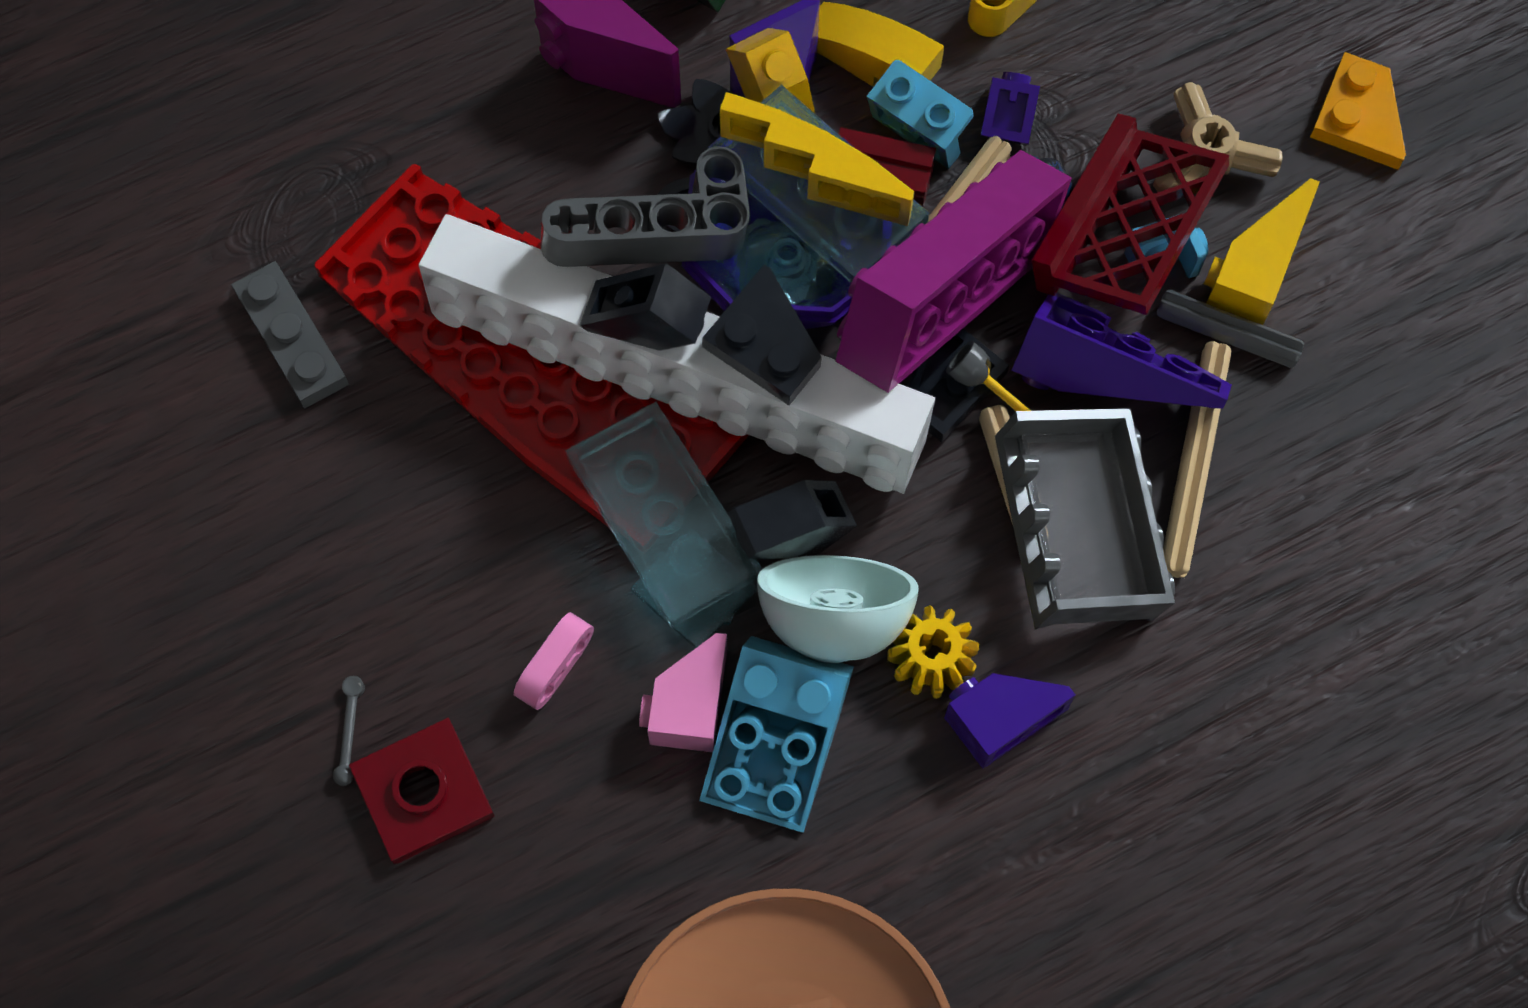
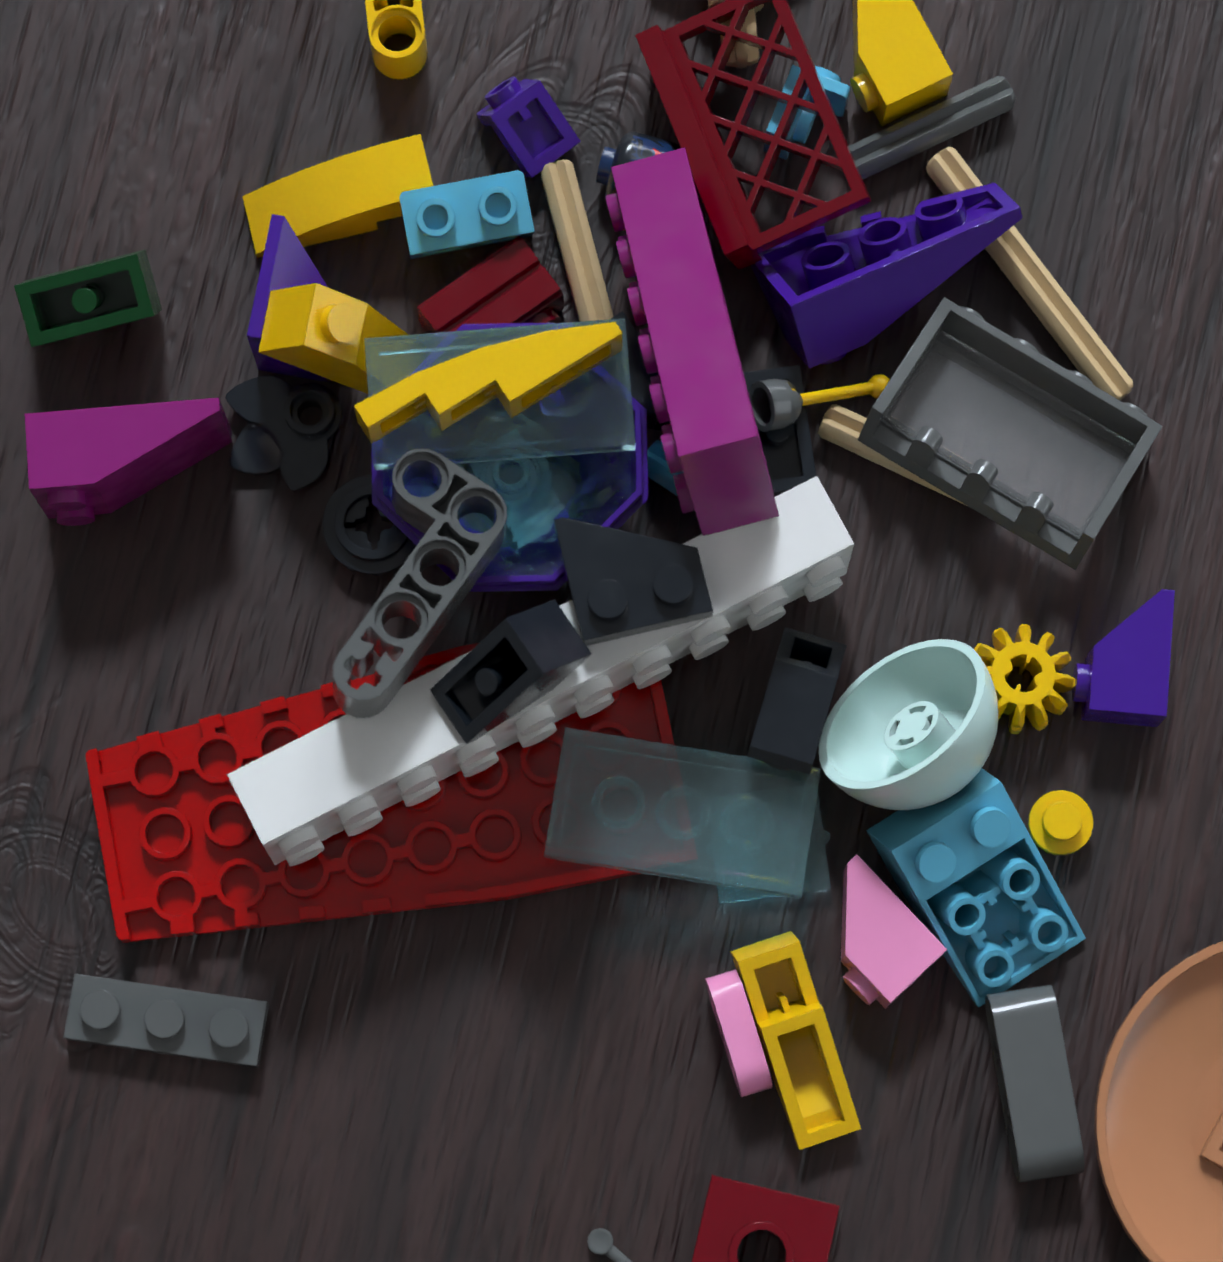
camera: 50 degrees left, 10 degrees up
(578, 700) = (796, 1039): none -> yellow slope
(675, 872) = (1034, 1083): none -> dark grey beam
(863, 753) = (1060, 822): none -> yellow plate

